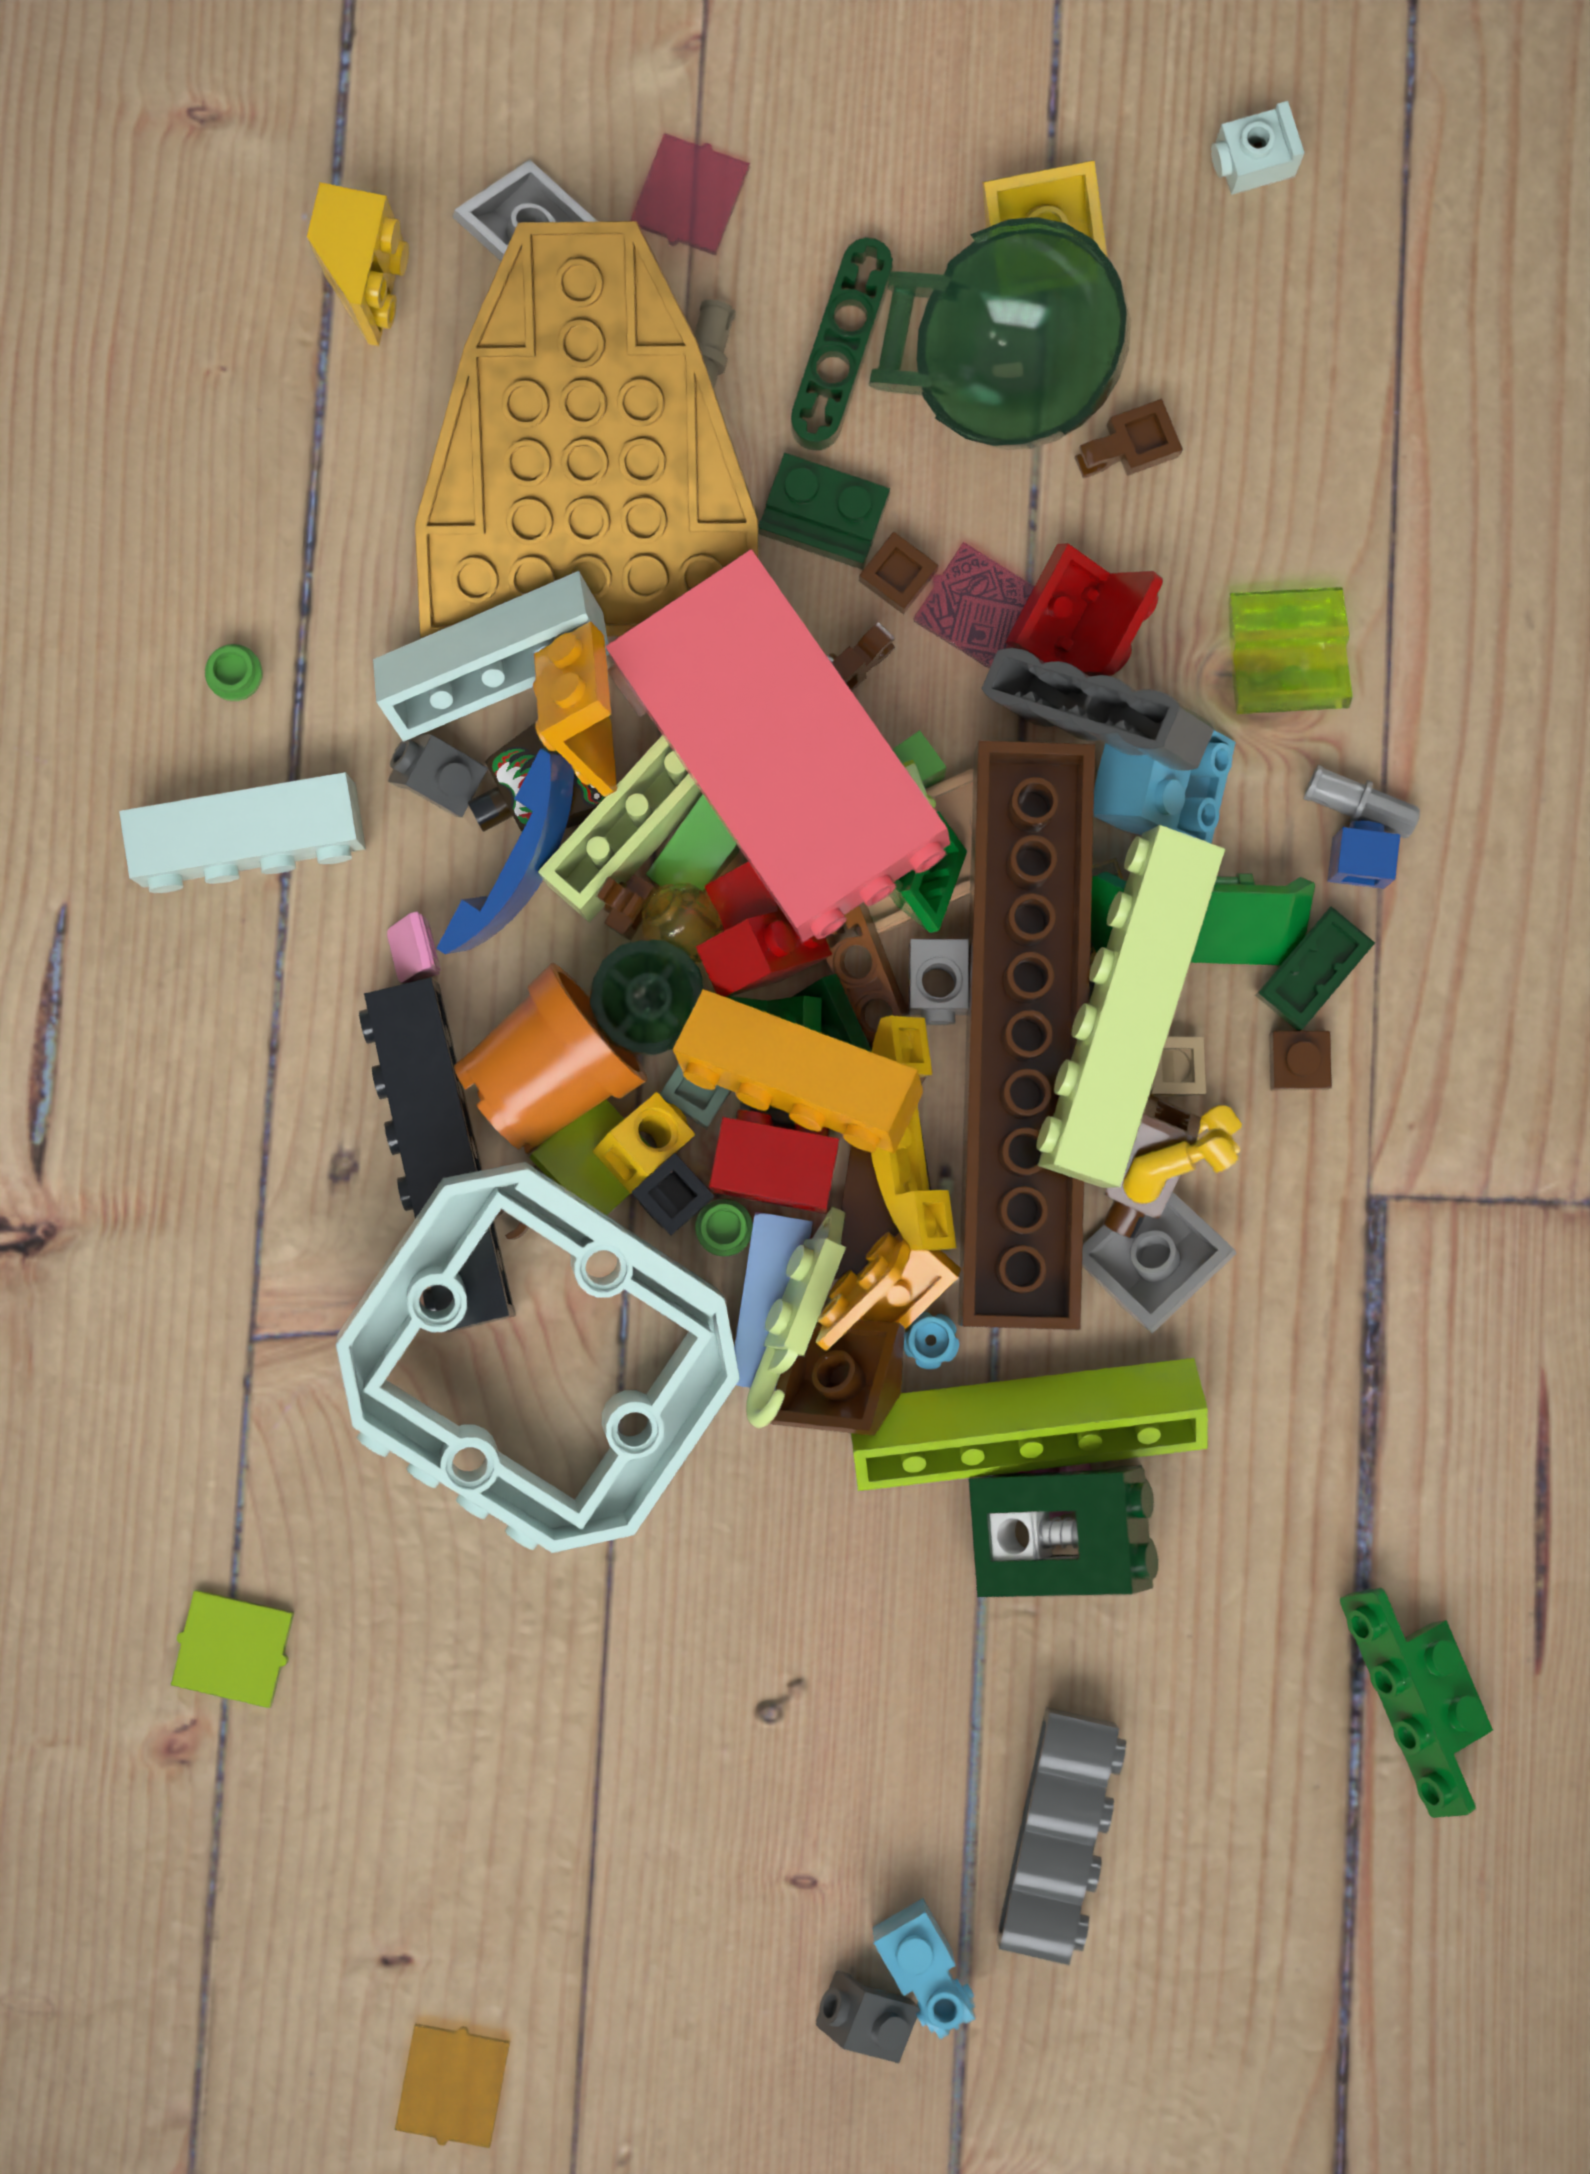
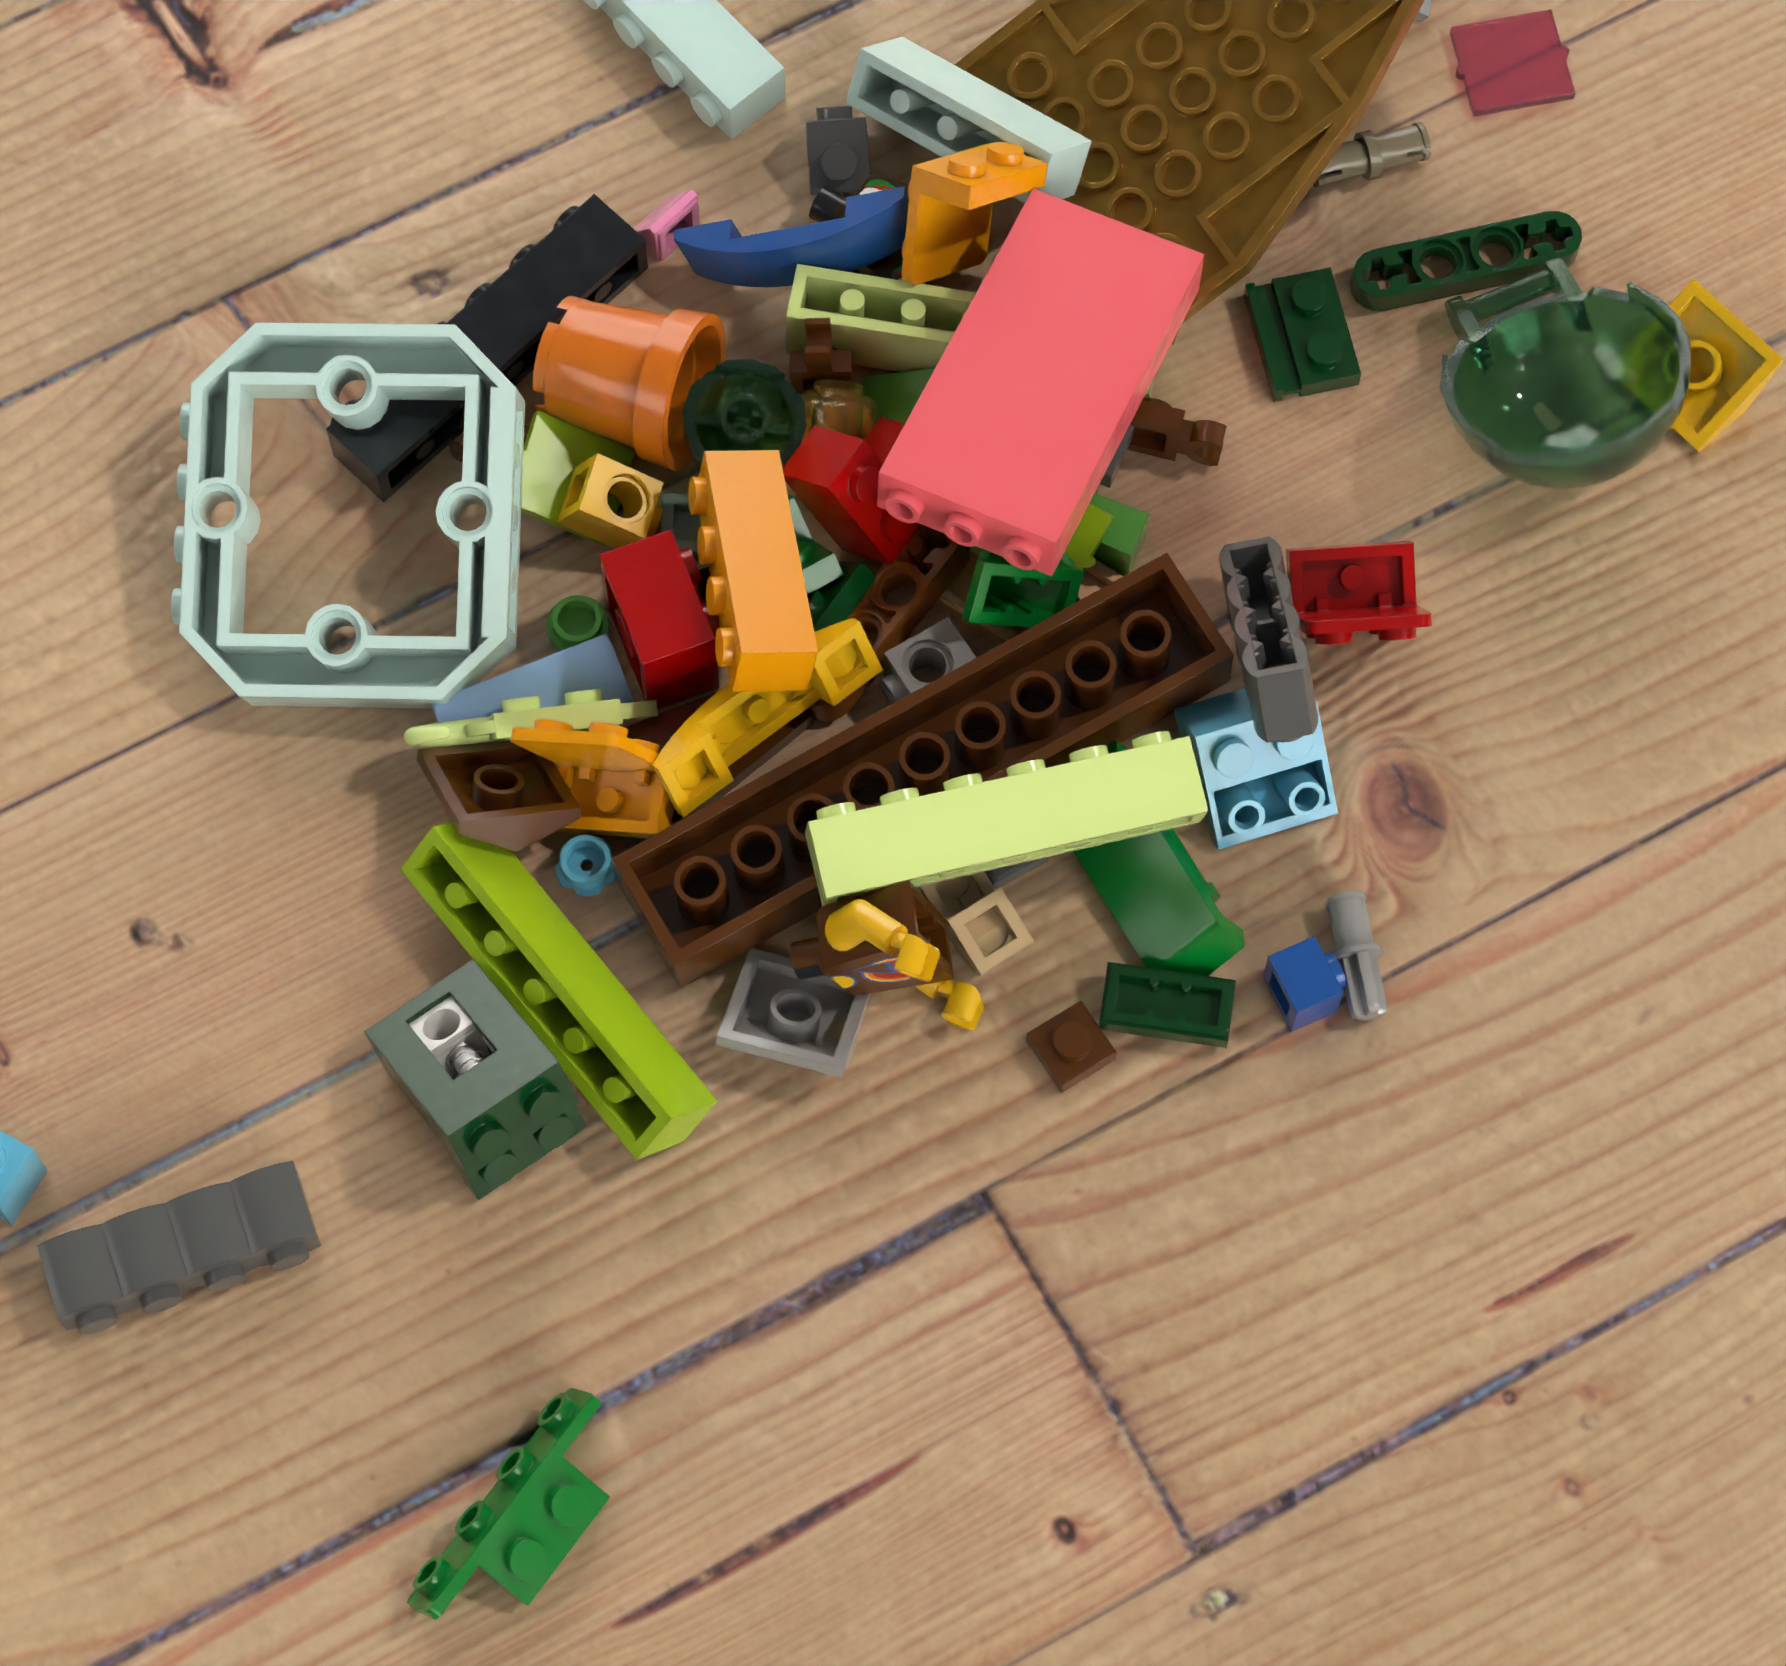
camera: 50 degrees right, 15 degrees down
(672, 1194) = (573, 550): black brick -> none
(898, 573) = (1287, 425): reddish brown plate -> none
(974, 605) = (1307, 506): clear pink piece -> none
(1136, 438) = (1558, 559): reddish brown plate -> none
(1289, 650) = (1457, 809): clear neon green slope -> none

